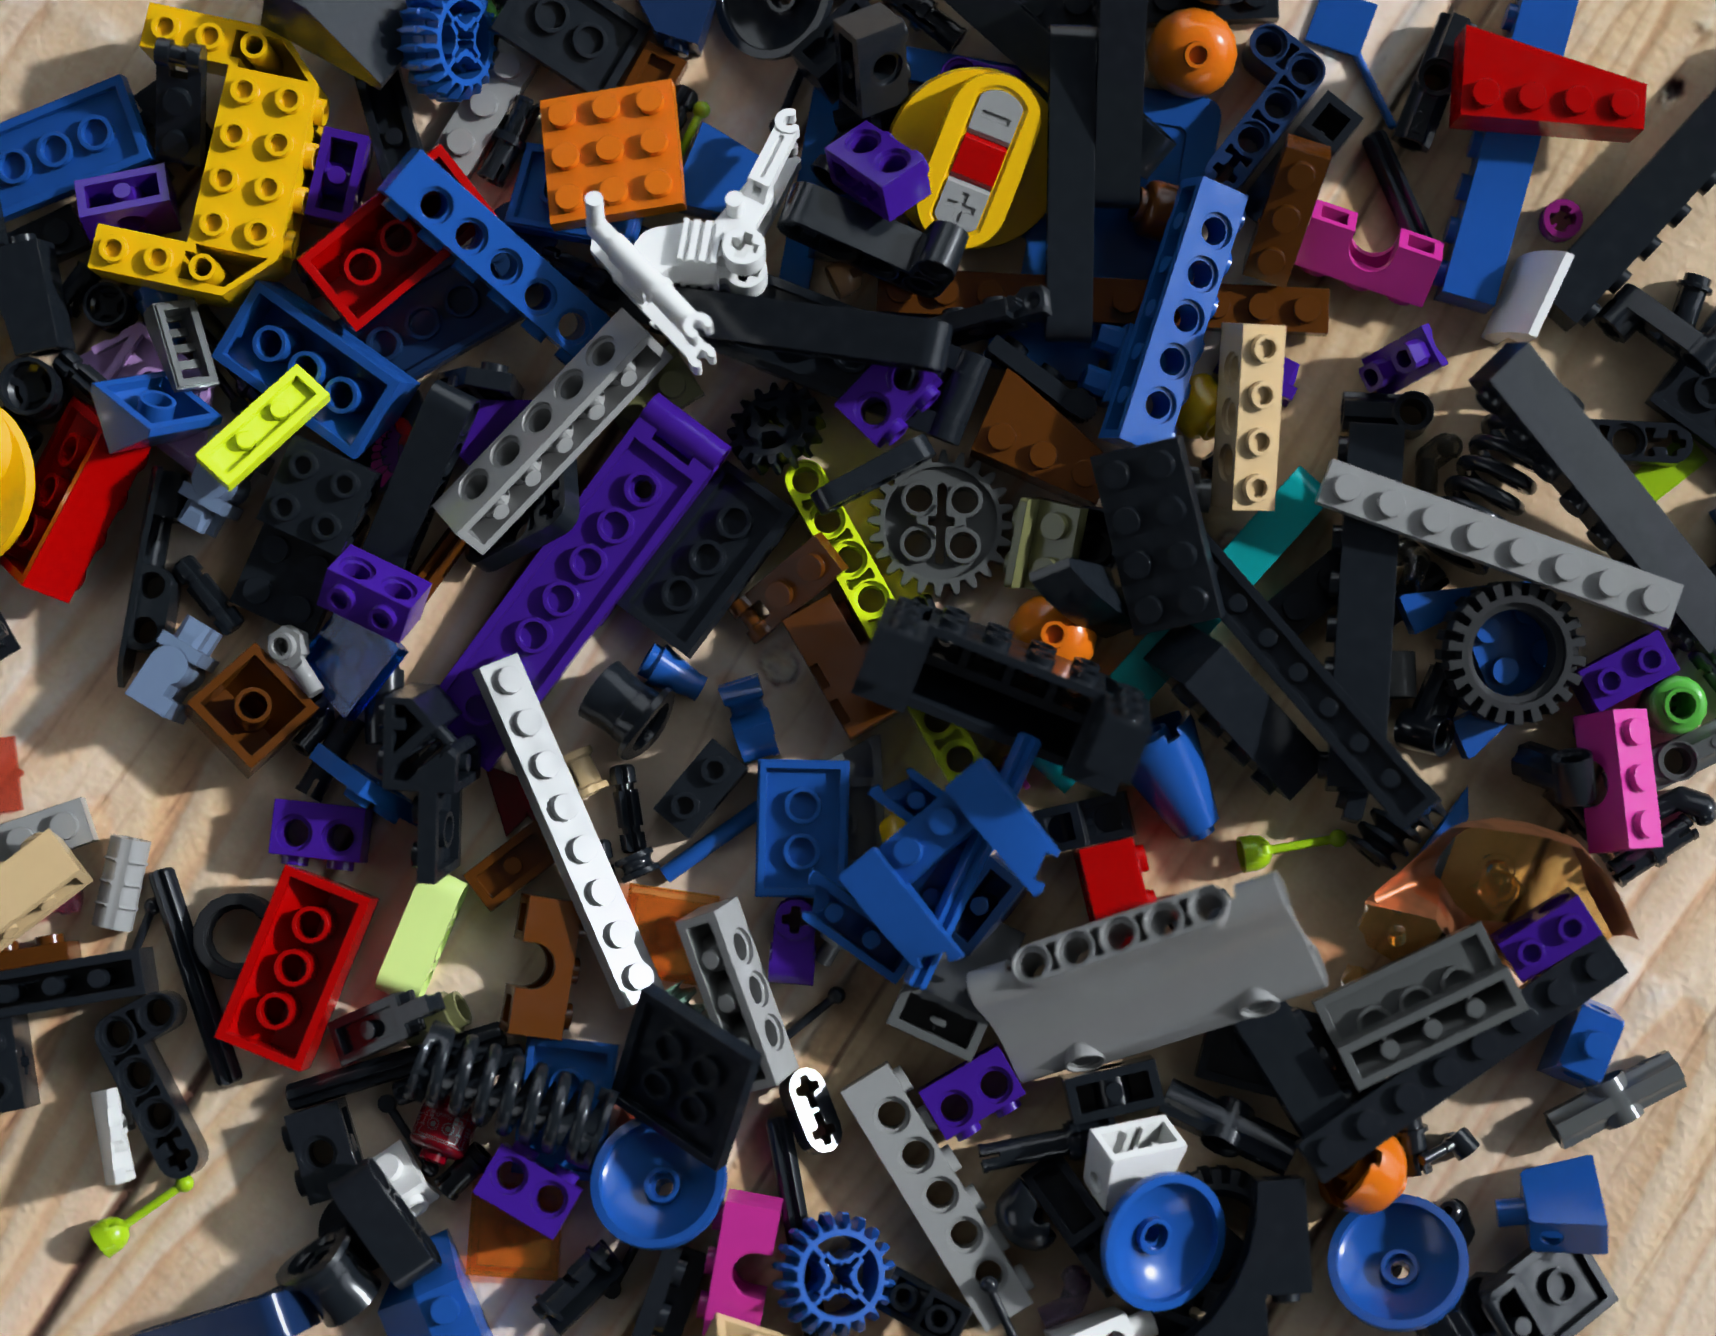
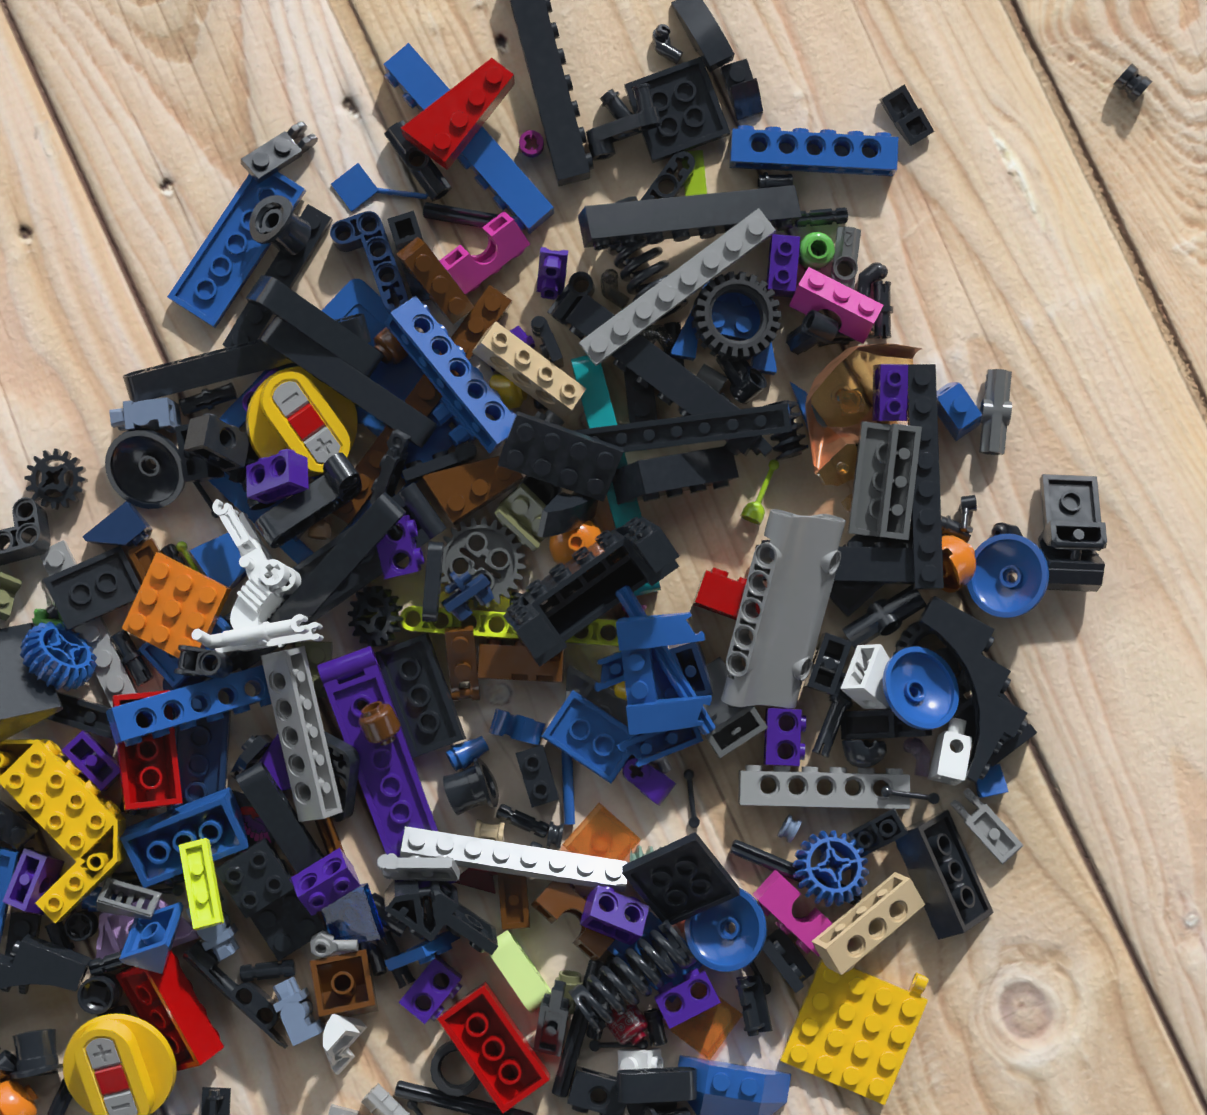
camera: 65 degrees left, 0 degrees up
(176, 747) = (338, 1037): none -> white slope
(472, 707) = (418, 868): none -> light grey hinge
(560, 229) = (198, 662): none -> black piece
(569, 1020) = (613, 921): none -> dark purple brick
(633, 526) = (379, 723): none -> reddish brown head
(737, 986) = (650, 823): light grey brick -> none
(810, 1111) = (739, 826): black beam -> none
(851, 1182) = (789, 828): none -> sand blue bush
(904, 539) = (477, 587): none -> dark blue hips
(1088, 821) = (683, 587): black slope -> none
(1176, 778) = (688, 527): blue cone -> none
(1191, 53) = (320, 274): orange cylinder -> none
(1297, 425) = (549, 348): none -> black plate
(1527, 296) = (560, 187): white slope -> none
(1559, 1208) = (1031, 476): blue torso -> none

